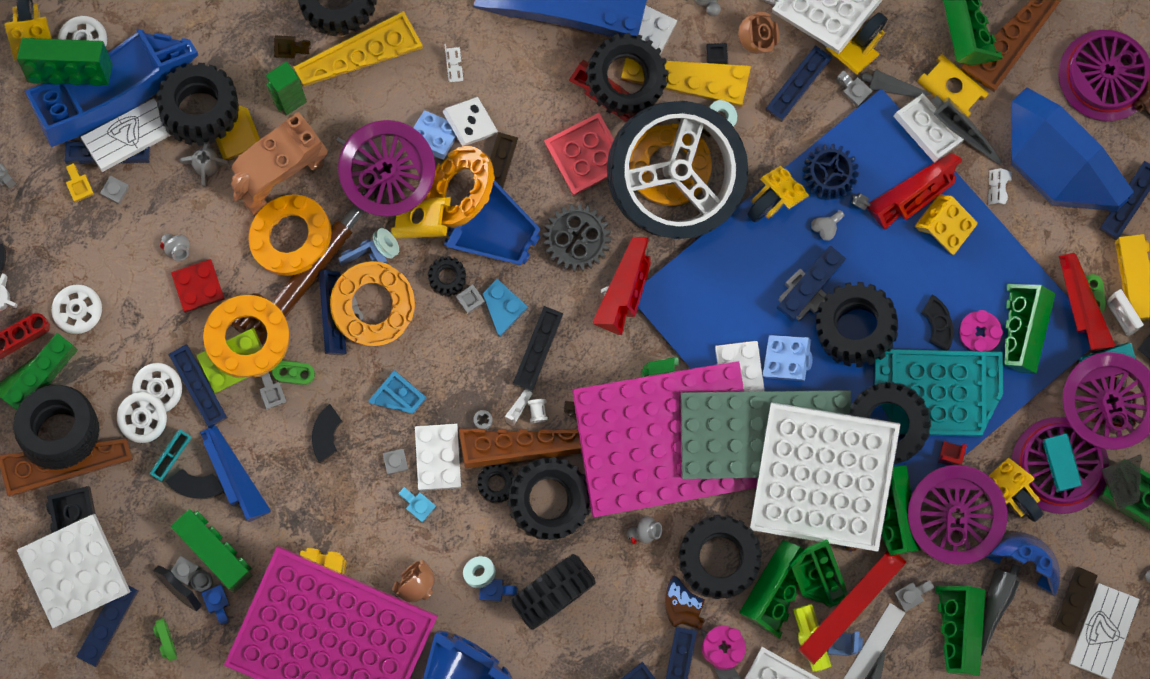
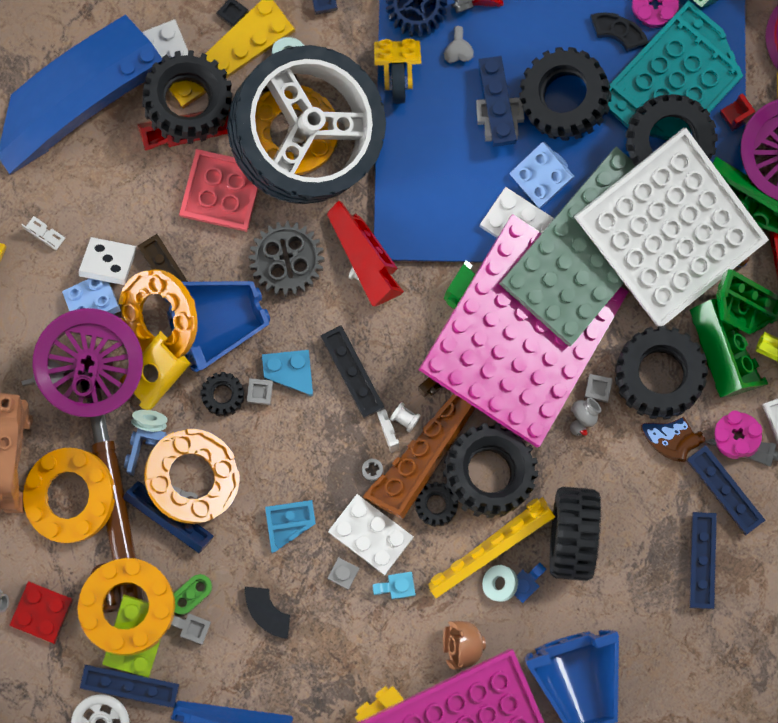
camera: 45 degrees left, 0 degrees up
(523, 551) = (521, 526): none -> yellow wing
(672, 524) = (598, 388): none -> light grey plate

